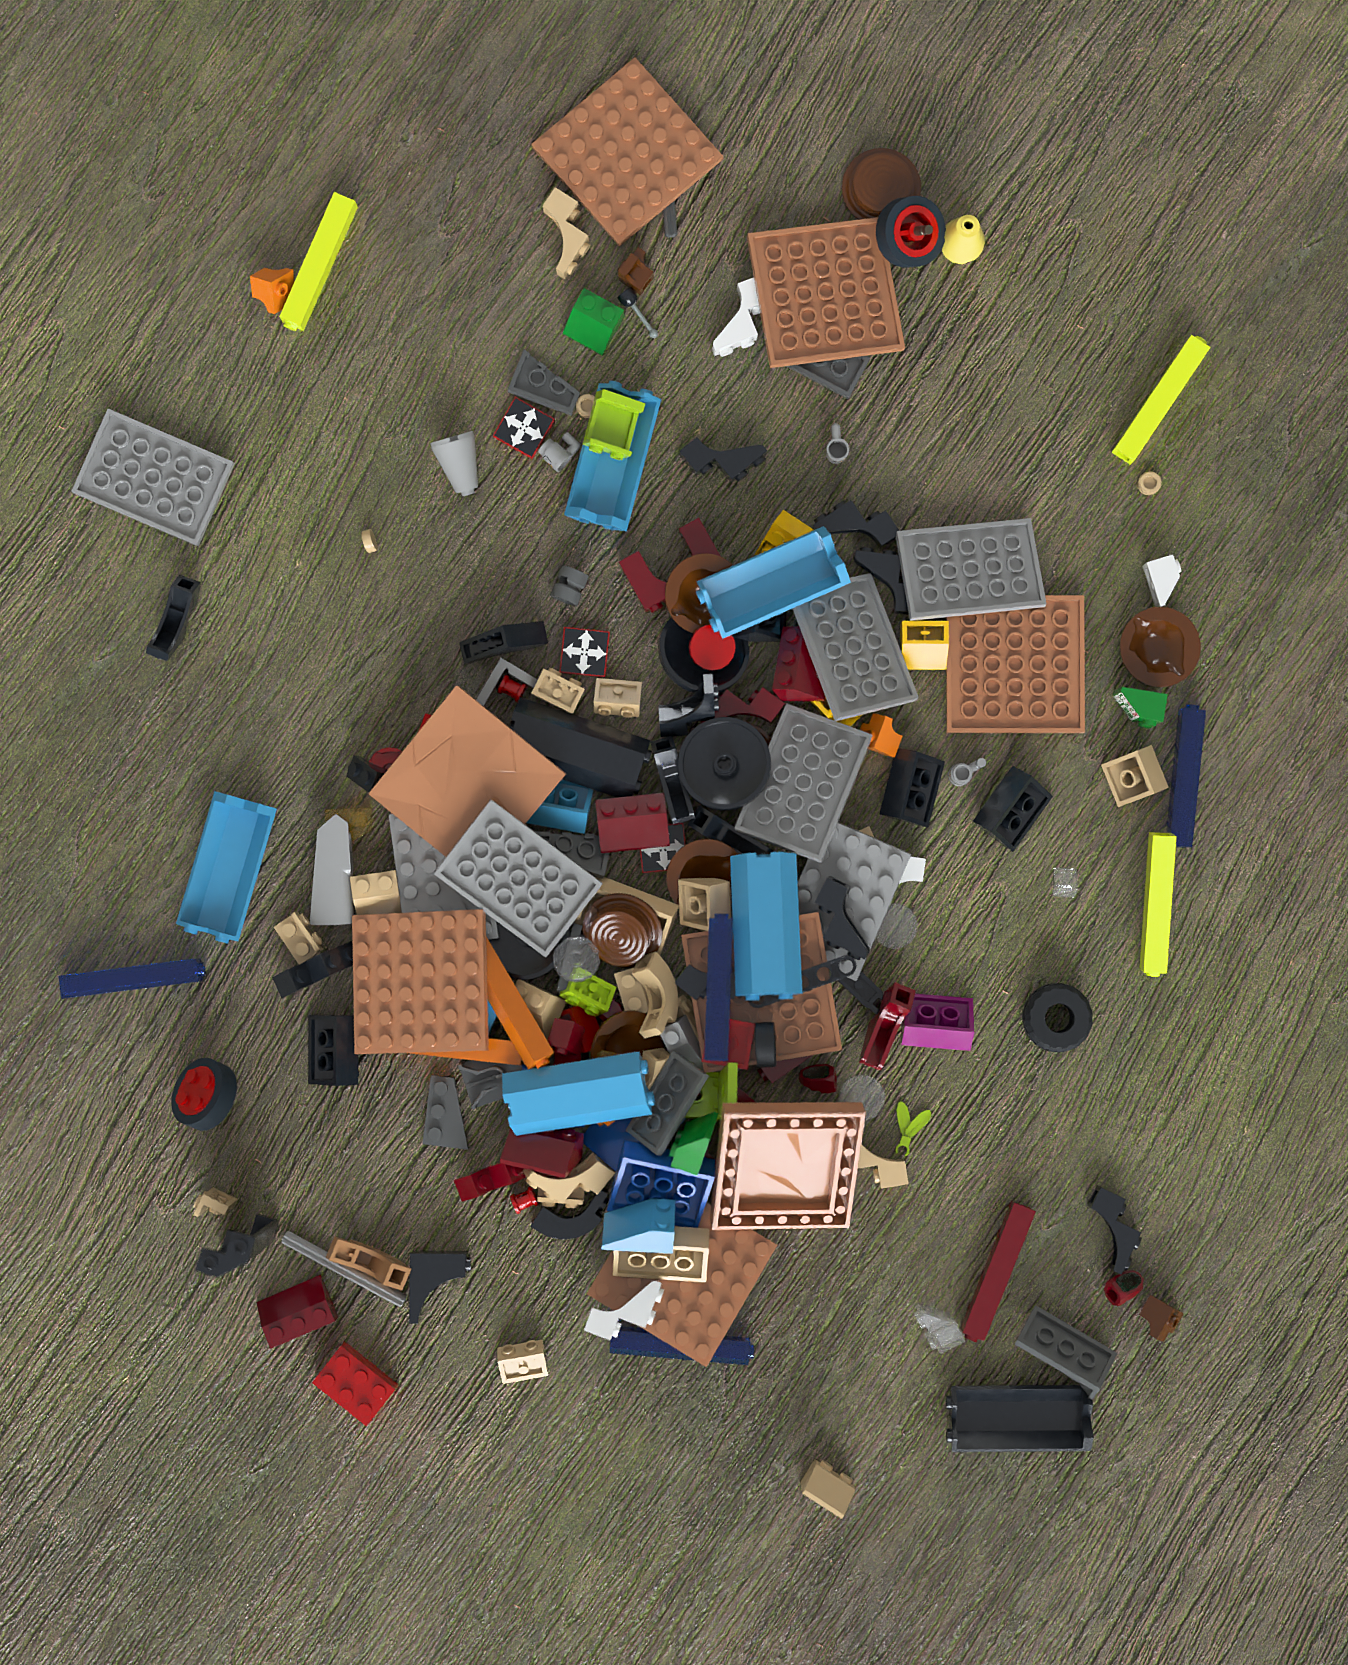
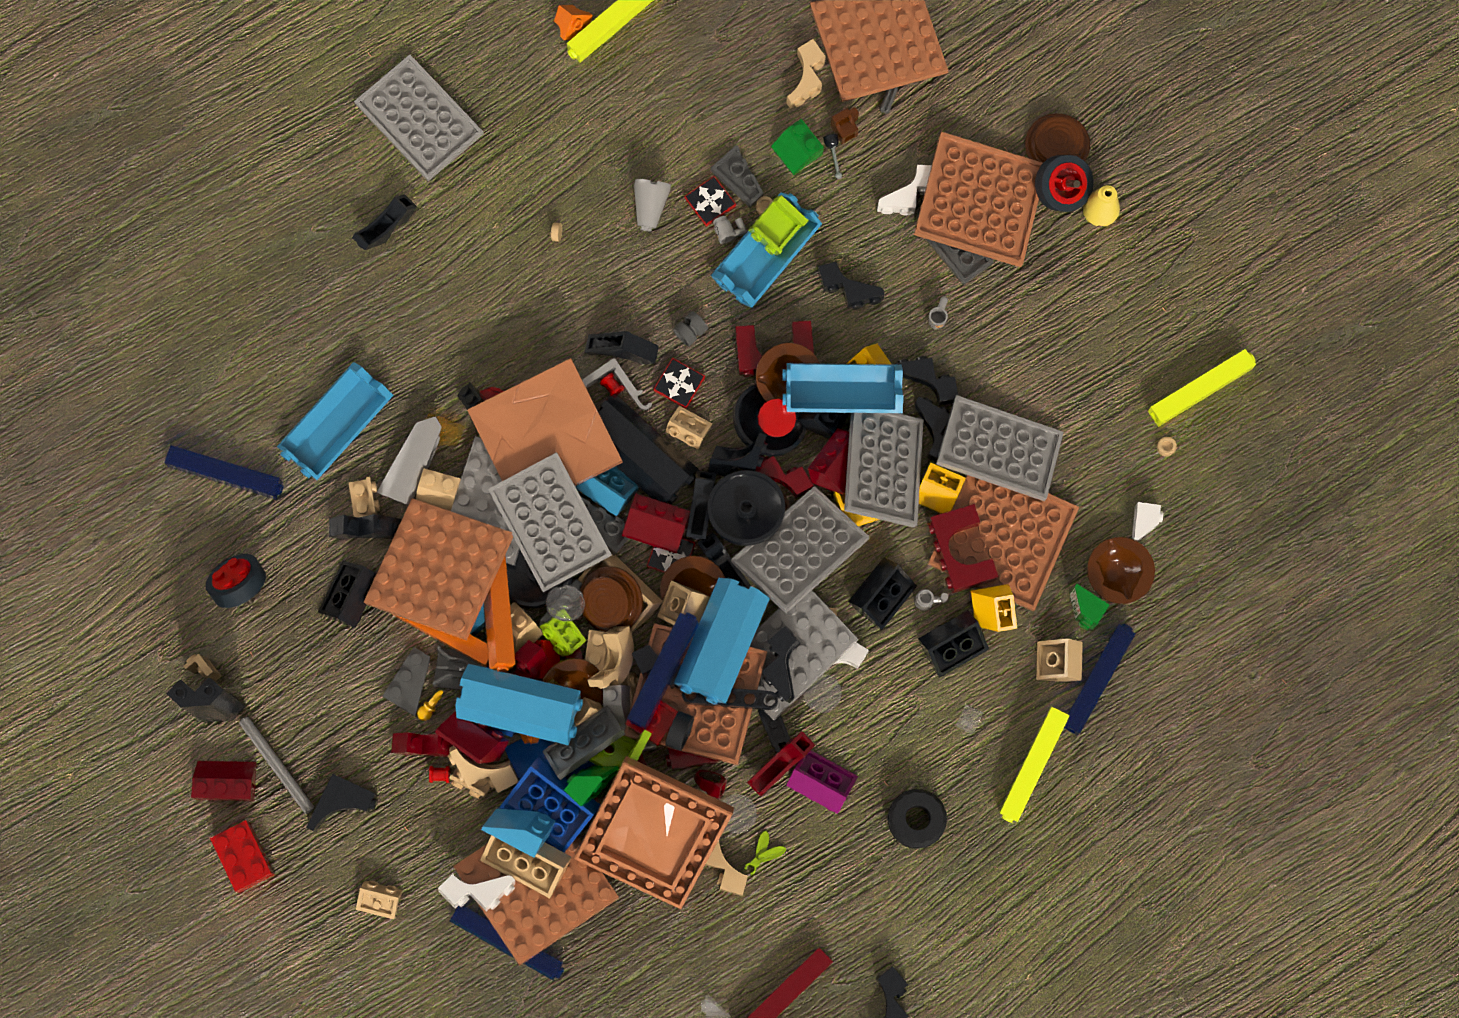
camera: 20 degrees right, 10 degrees down
(374, 1262) = (297, 765): medium nougat arch -> none
(476, 1139) = (425, 712): none -> yellow bar
(558, 690) = (646, 401): tan bracket -> none
(570, 1227) = (467, 811): black arch -> none
(884, 738) = (877, 546): orange brick -> none
(986, 732) = (959, 575): none -> dark red arch
(1042, 751) = (994, 608): none -> yellow slope

